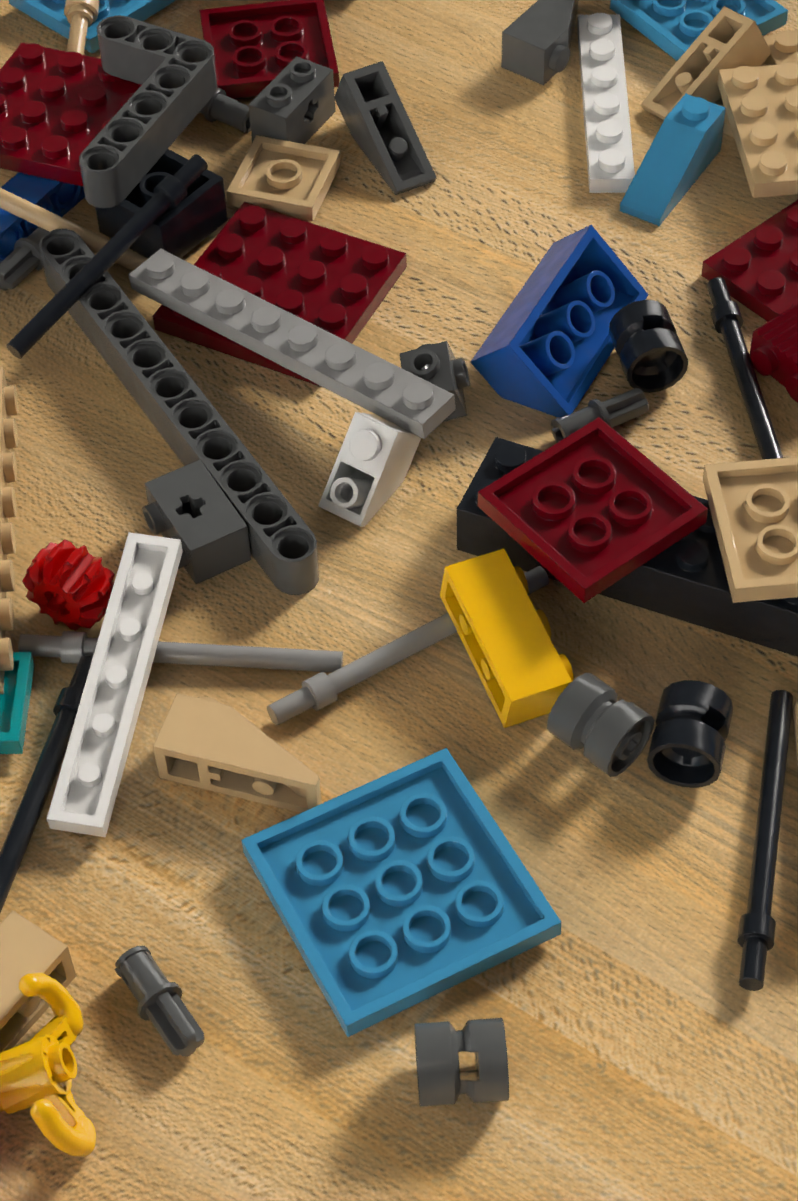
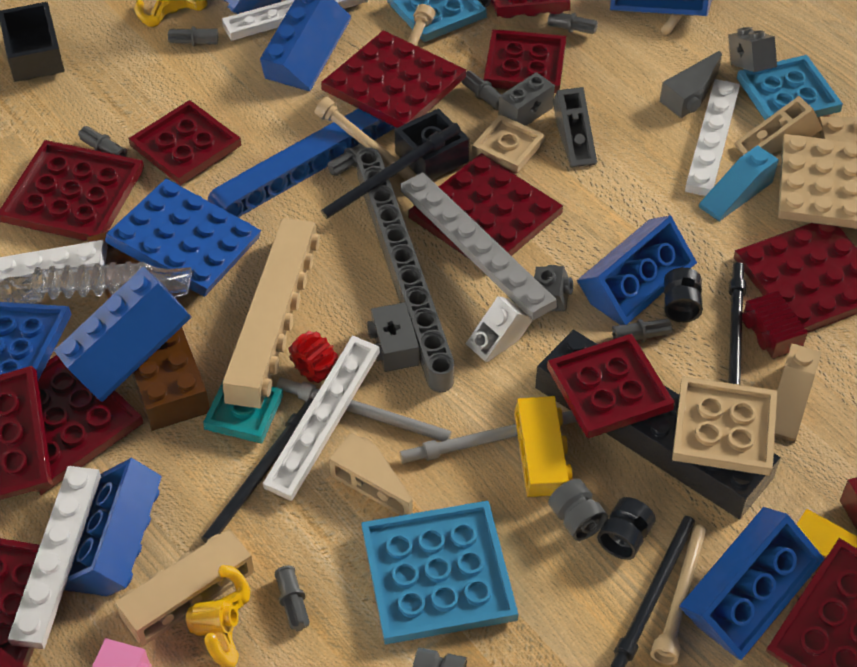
camera: 15 degrees right, 0 degrees up
(175, 83) = (460, 76): dark grey beam -> none

